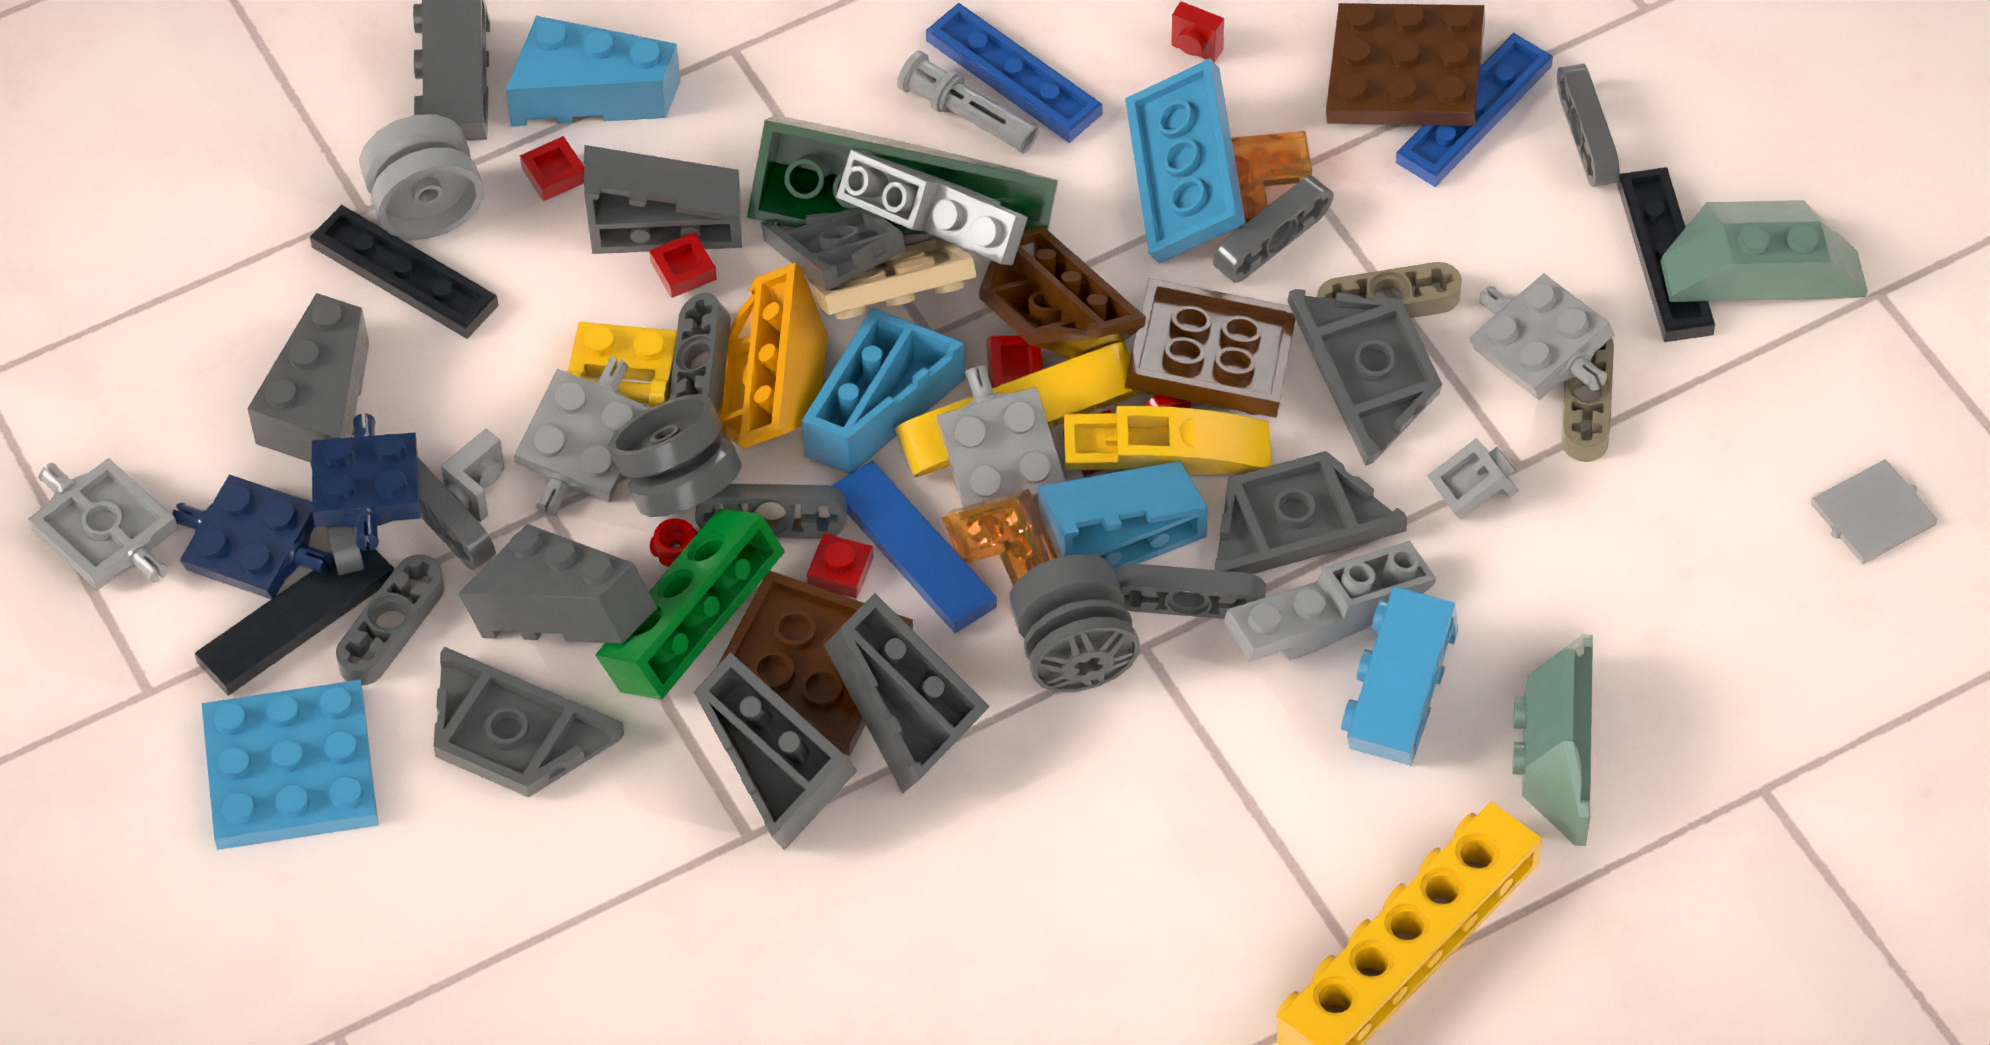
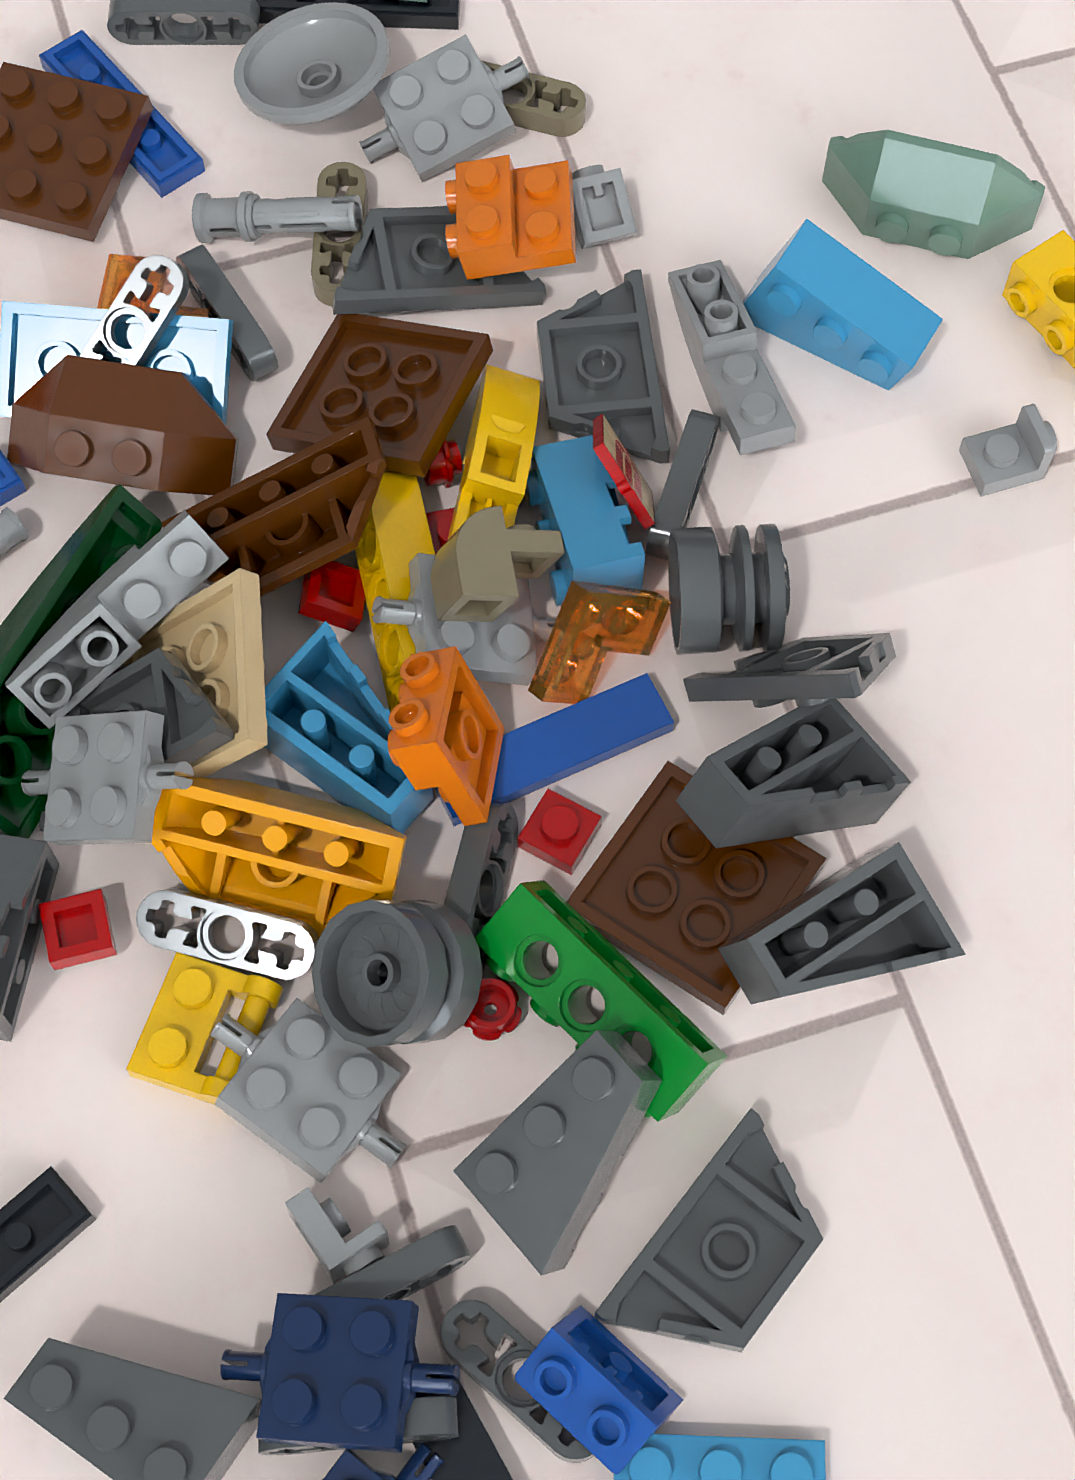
camera: 80 degrees left, 10 degrees up
(391, 659) = (597, 1389): none -> blue bracket
(787, 229) = (105, 778): none -> light grey plate
(877, 441) = (446, 732): none -> orange plate
(1003, 687) = (801, 670): none -> dark grey wing
(1031, 417) = (480, 565): none -> dark tan brick
(1118, 185) = (122, 428): none -> reddish brown wedge
(1169, 525) = (623, 471): none -> red piece
(1217, 162) = (139, 286): none -> beam
(1296, 843) = (1010, 453): none -> light grey bracket
(1376, 222) = (252, 216): none -> light grey pin
(1417, 398) = (510, 216): none -> orange plate
(1550, 222) = (312, 63): none -> light grey dish

